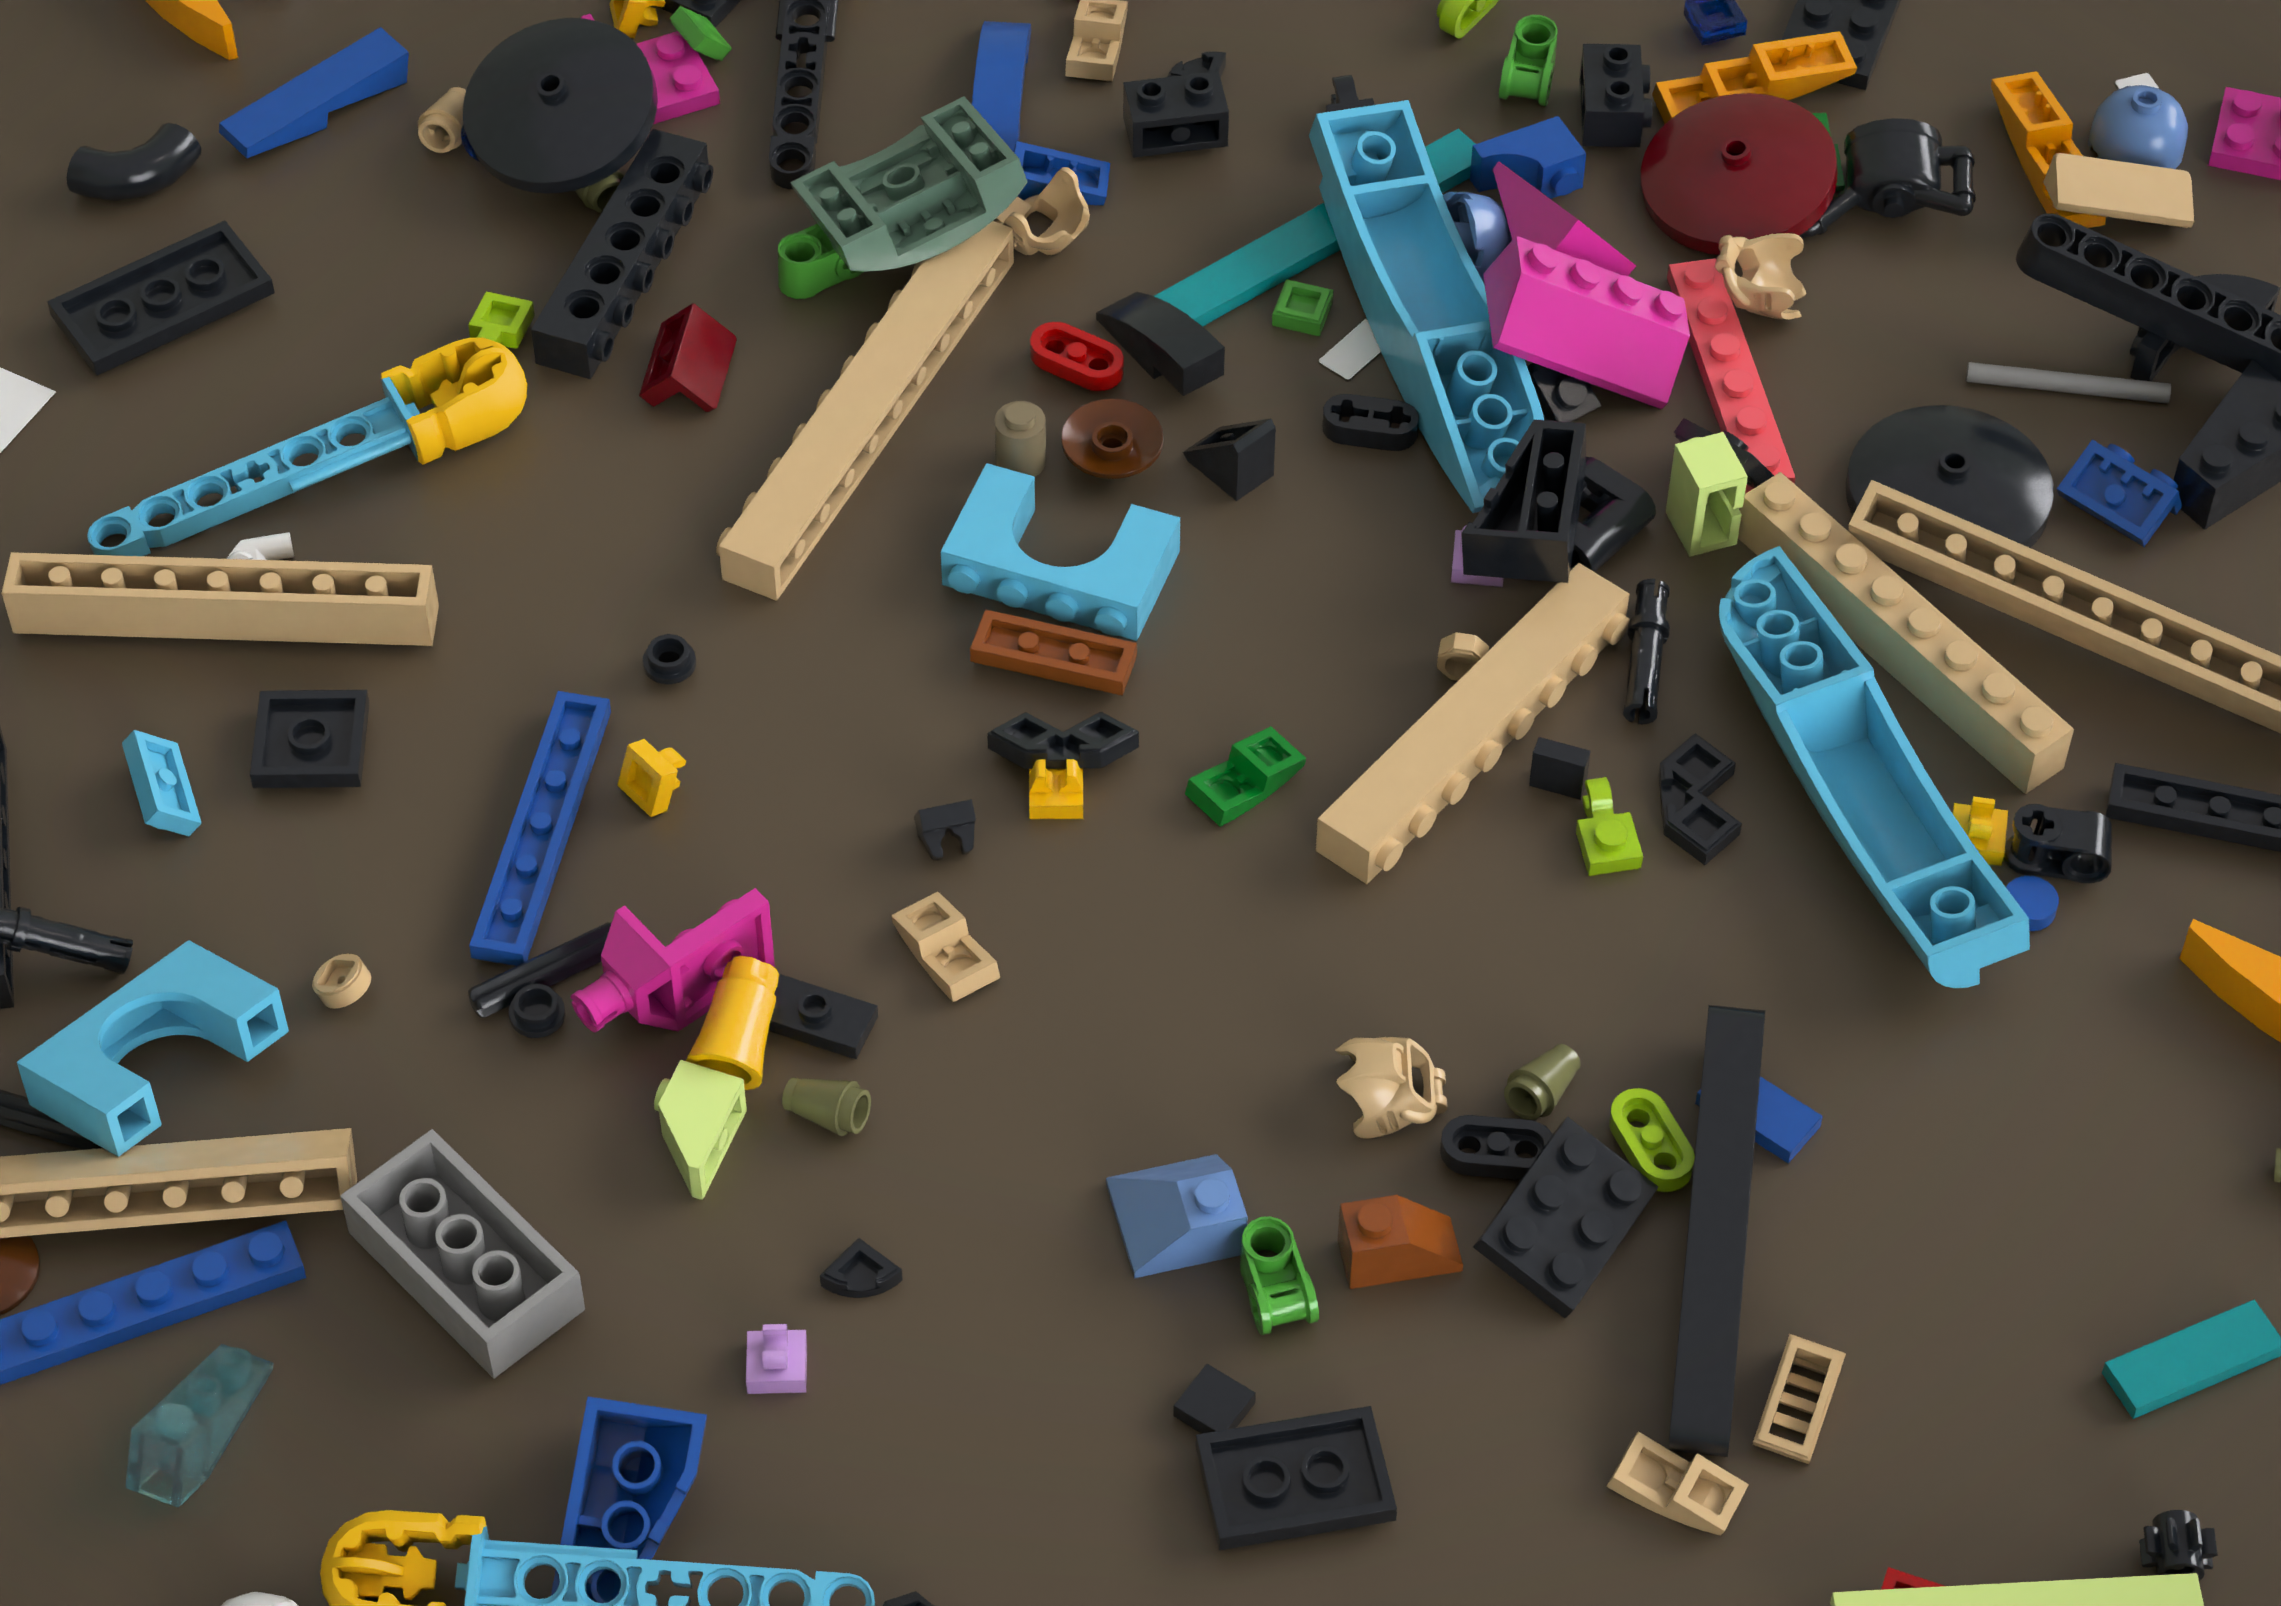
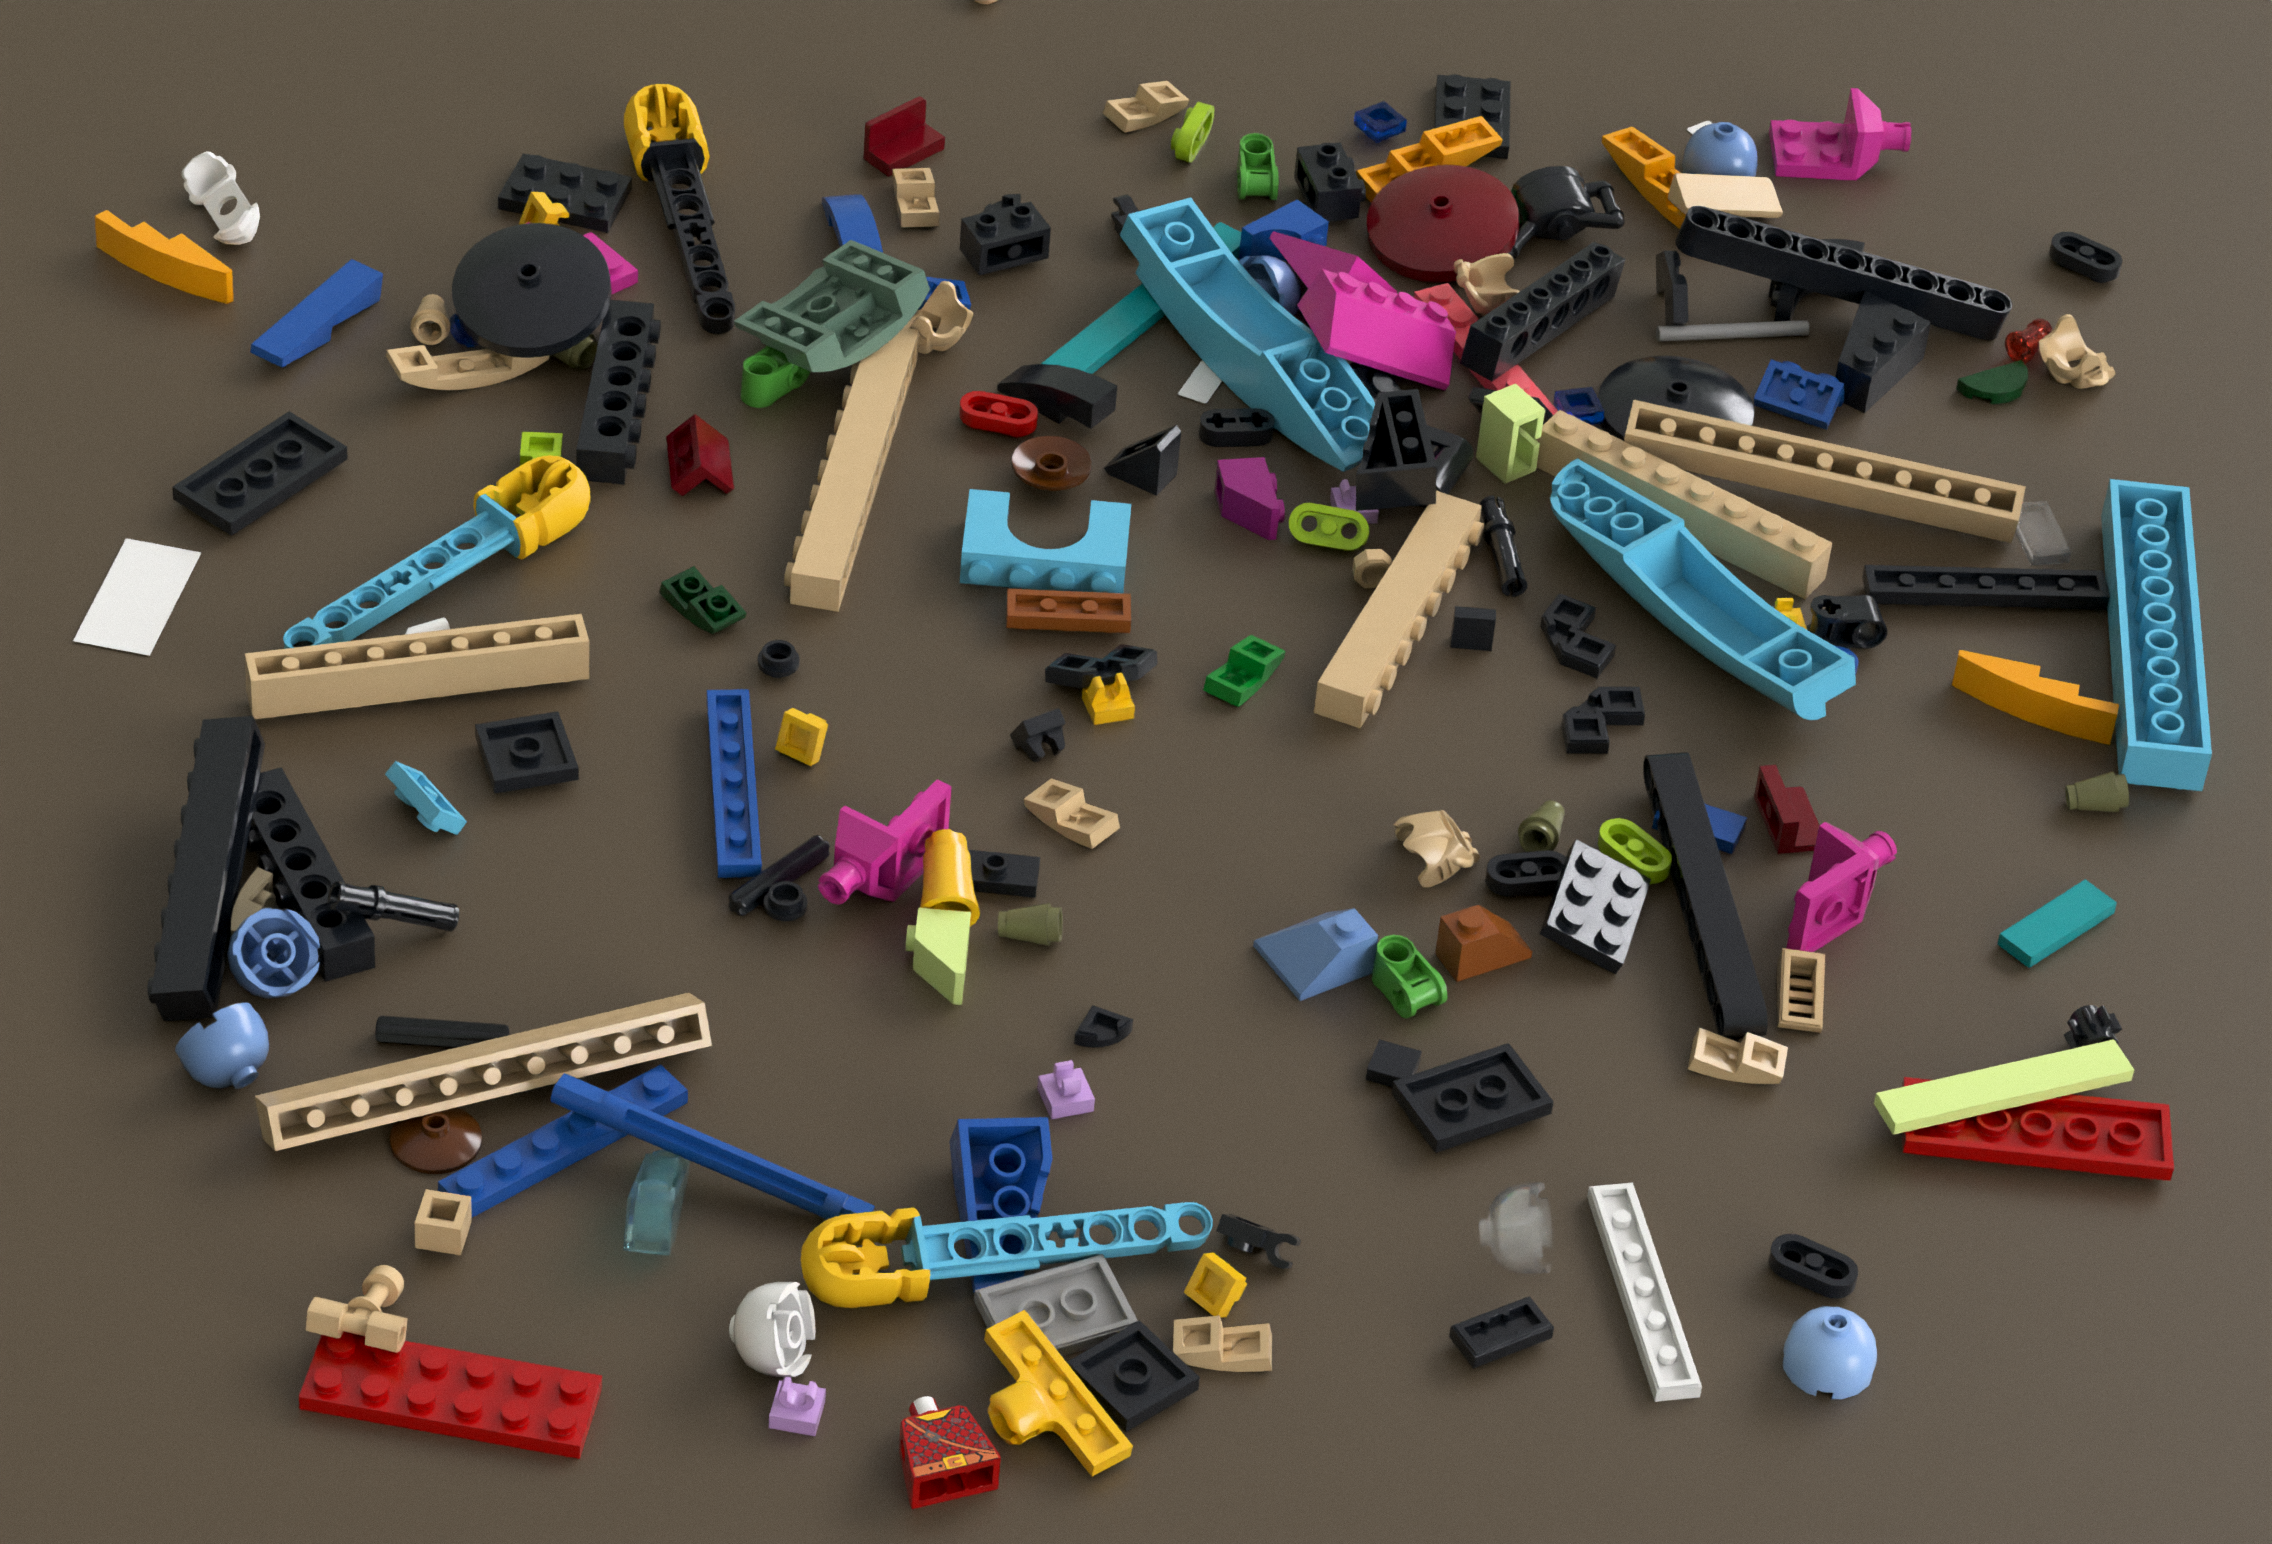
camera: 20 degrees left, 10 degrees down
(134, 171) = (197, 387): black cylinder -> none
(185, 993) = (477, 995): medium azure arch -> none
(287, 1371) = (703, 1149): none -> blue piece
(341, 981) = (627, 905): tan tile -> none
(443, 193) = (457, 370): none -> tan slope
(463, 1253) = (810, 1057): light grey brick -> none
(610, 560) = (701, 603): none -> dark green slope
(700, 33) = (607, 232): bright green tile -> none
(1020, 437) = (983, 468): dark tan brick -> none
(1302, 307) = (1152, 359): bright green tile -> none
(1341, 524) = (1248, 495): none -> magenta slope
(1430, 589) = (1329, 527): none -> lime plate
(1606, 838) = (1521, 671): lime plate -> none
(1697, 912) = (1585, 725): none -> black tile
(1814, 323) = (1542, 311): none -> black brick
(1820, 464) = (1580, 403): none -> clear blue plate
(1882, 1121) = (1785, 812): none -> dark red panel
(1912, 1251) = (1837, 886): none -> dark pink plate
(2002, 314) = (1674, 286): none -> black tile

